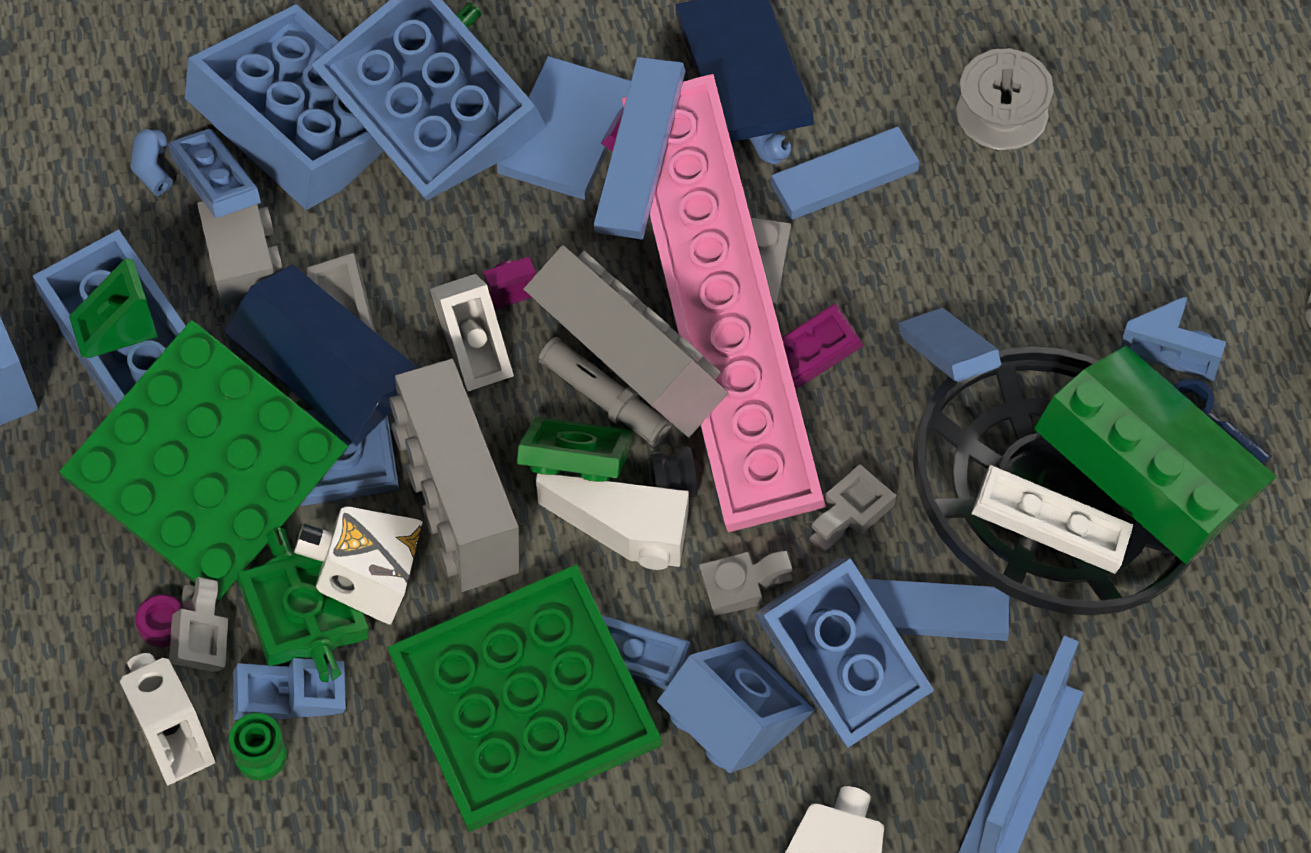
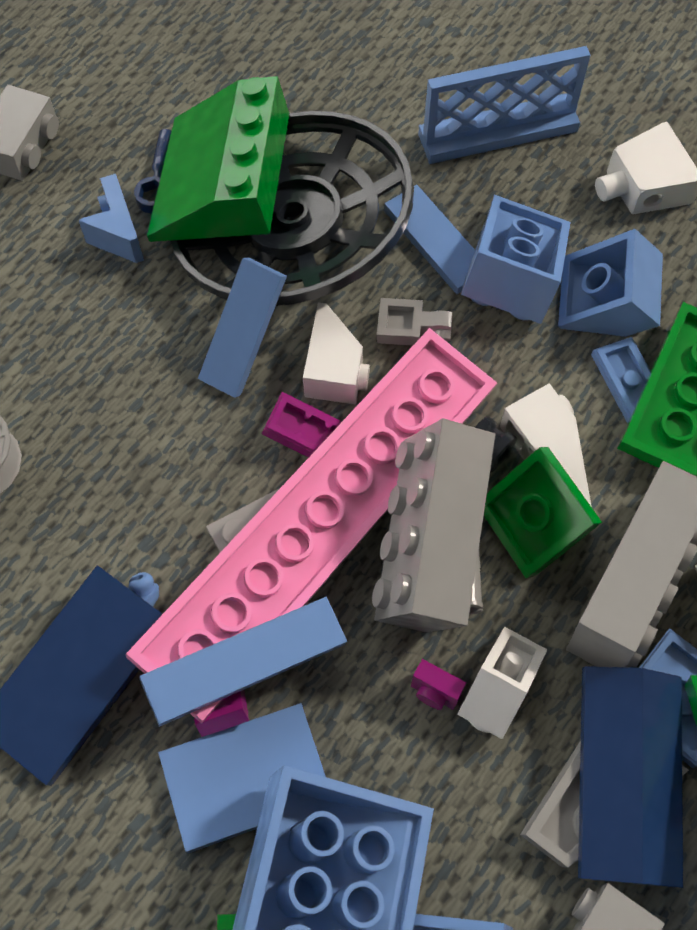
camera: 130 degrees left, 5 degrees up
(737, 584) = (524, 355): light grey plate -> none
(844, 173) = (125, 526): medium blue tile -> none
(864, 414) = (334, 361): none -> white slope
(1052, 519) = (336, 175): white tile -> none

